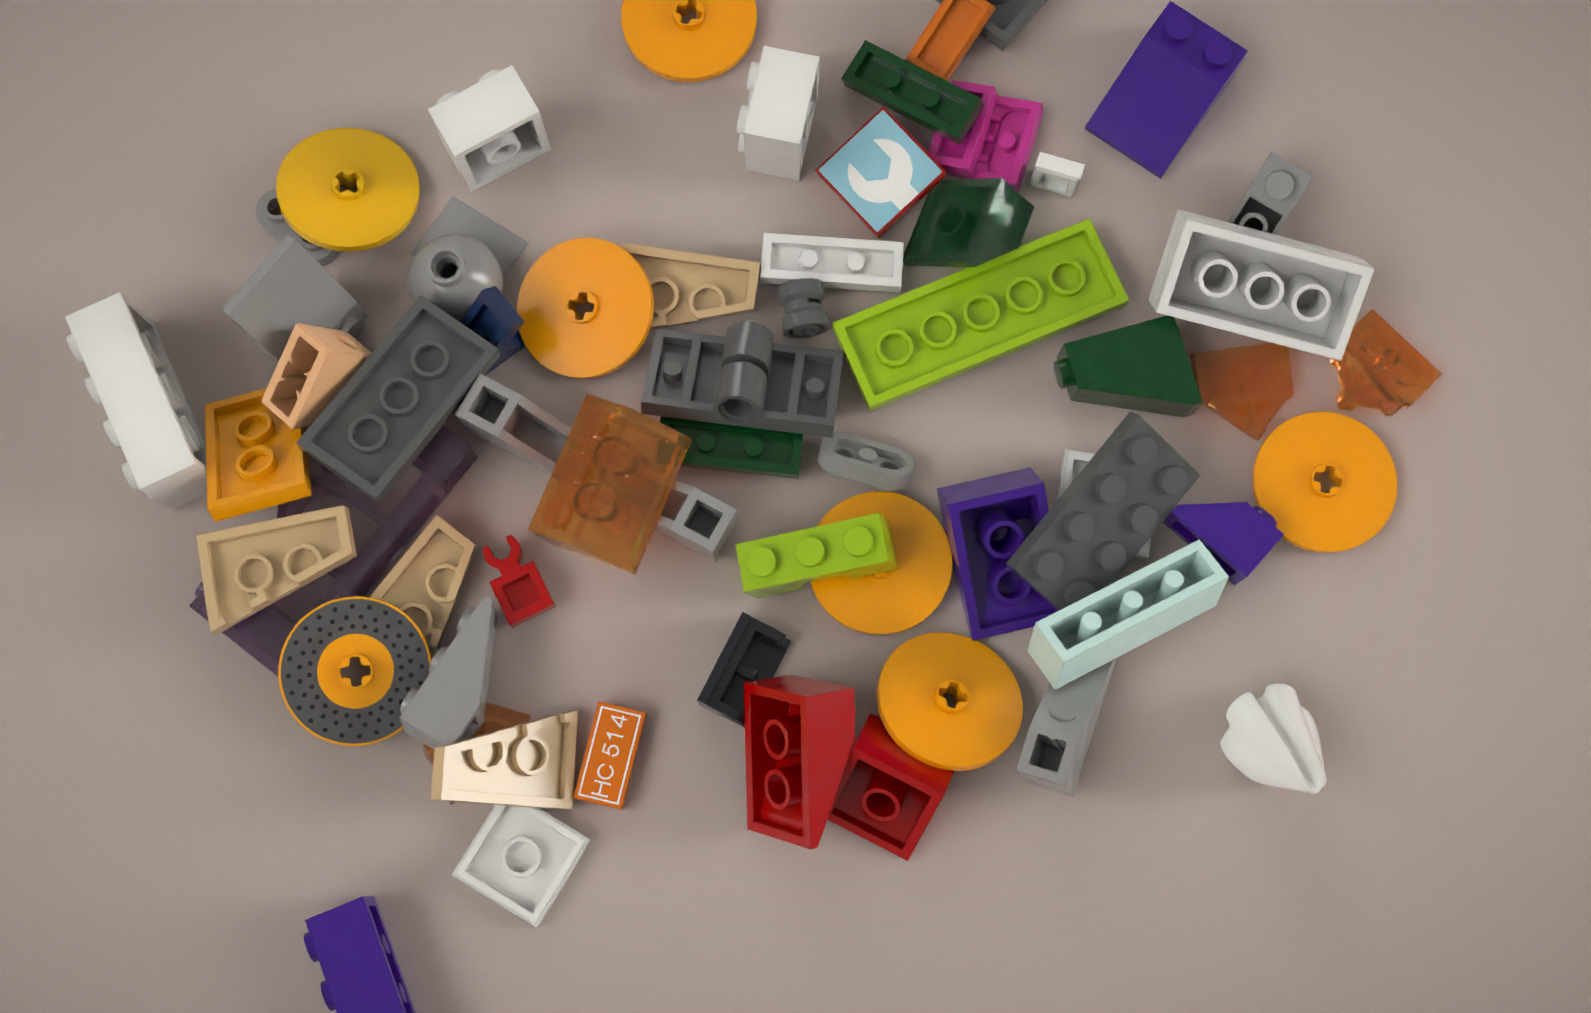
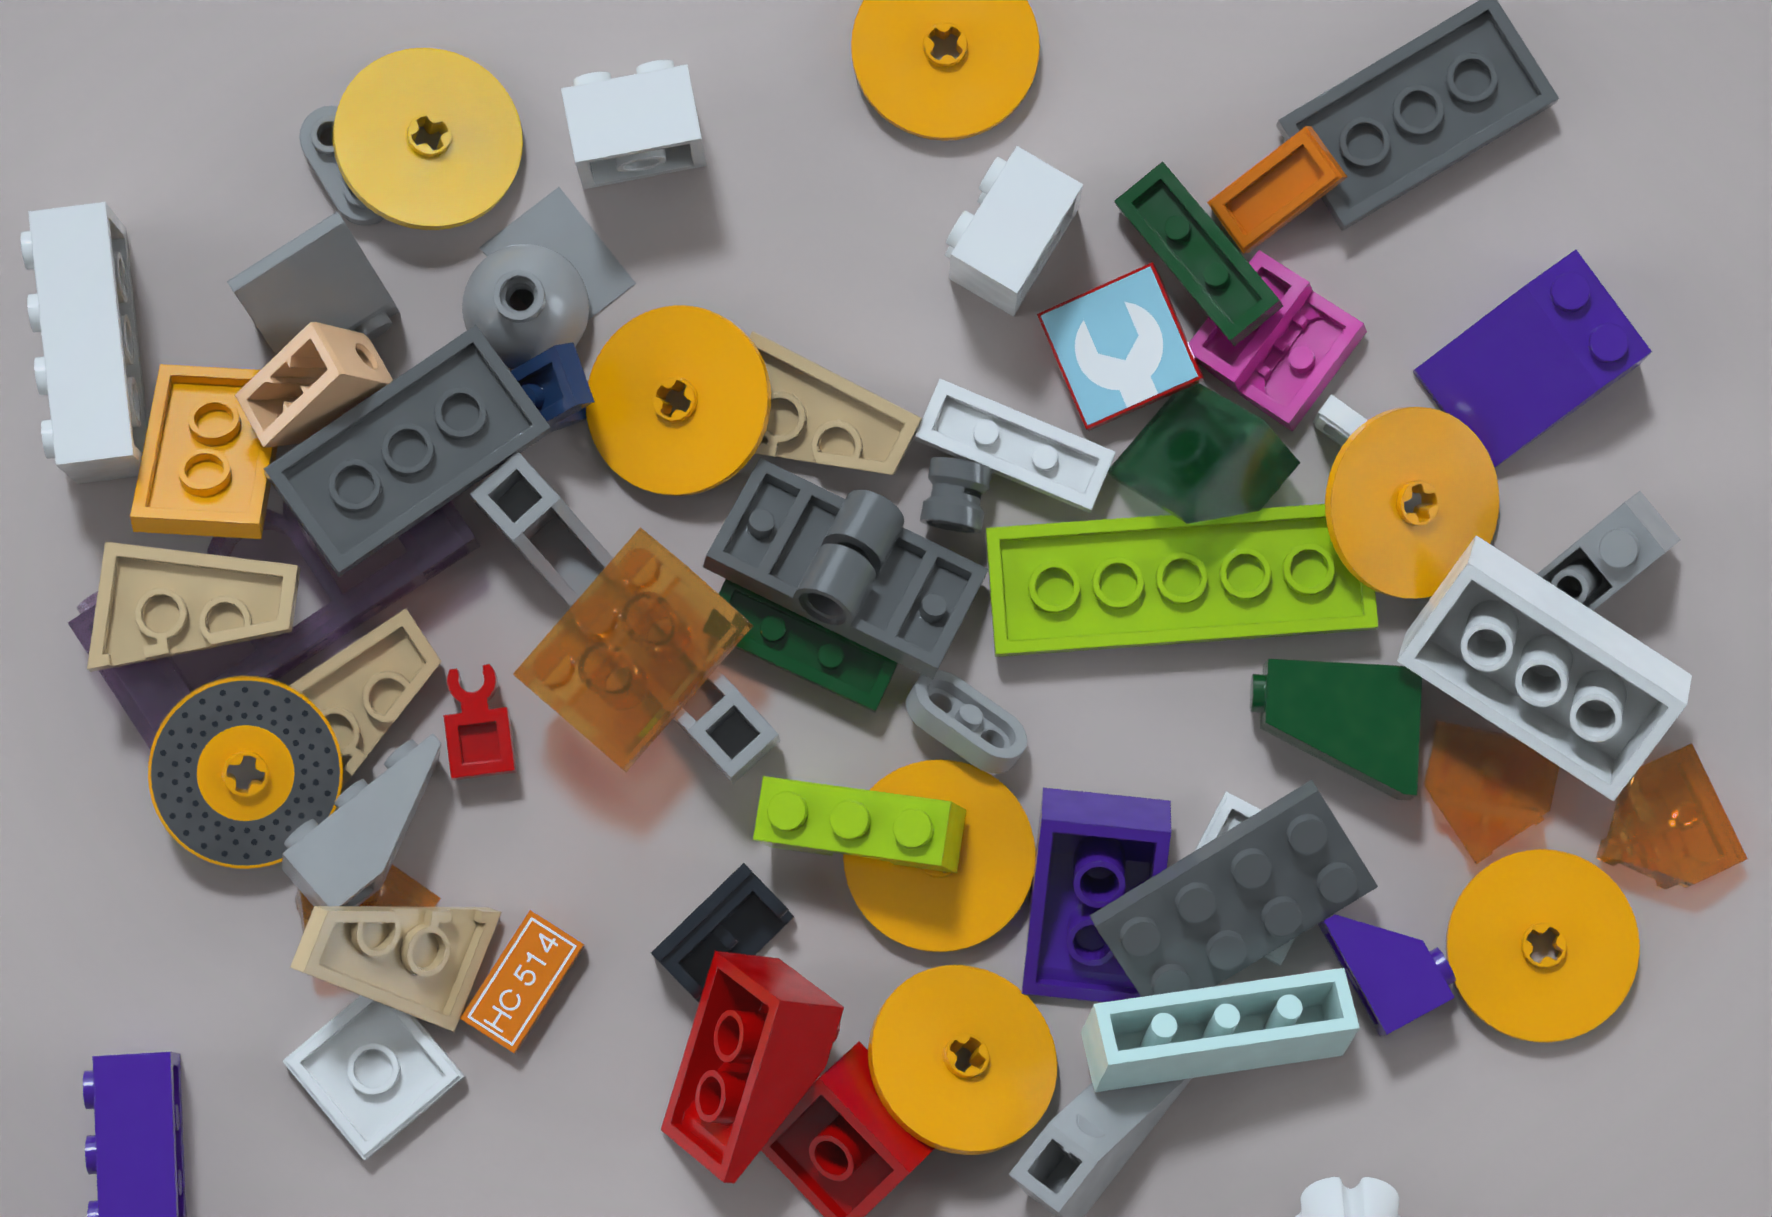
camera: 20 degrees right, 5 degrees up
(1089, 201) = (1377, 473): none -> light orange piece

